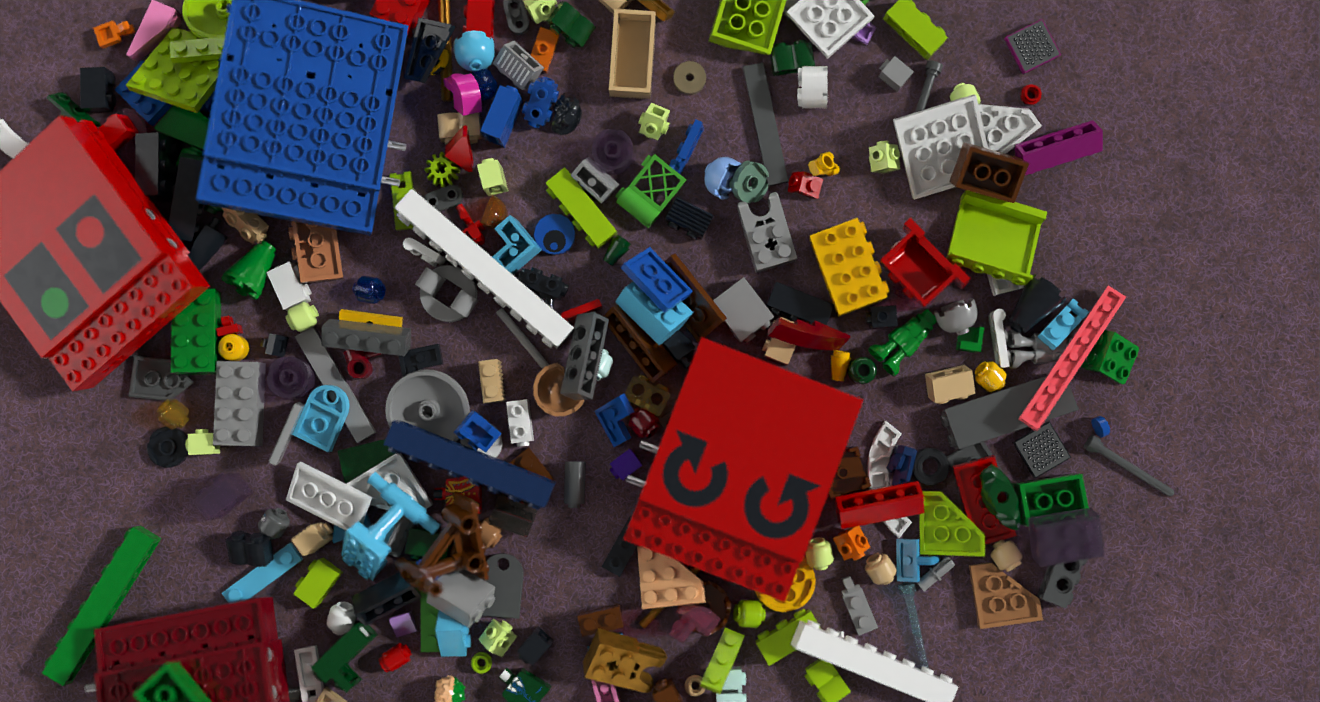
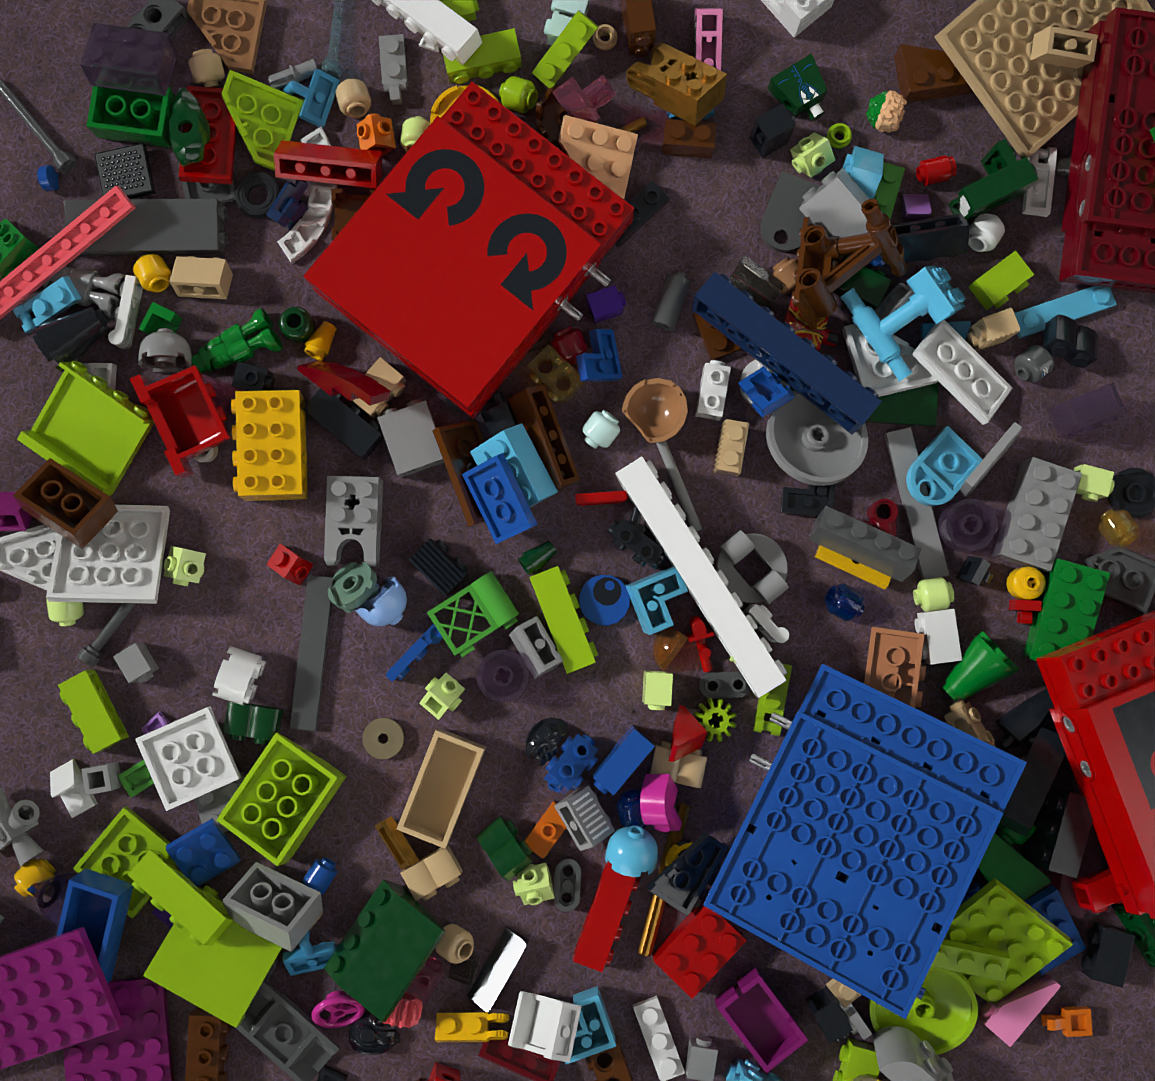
camera: 165 degrees left, 0 degrees up
(584, 356) = (613, 437): dark grey brick -> none
(824, 165) = (259, 579): yellow plate -> none

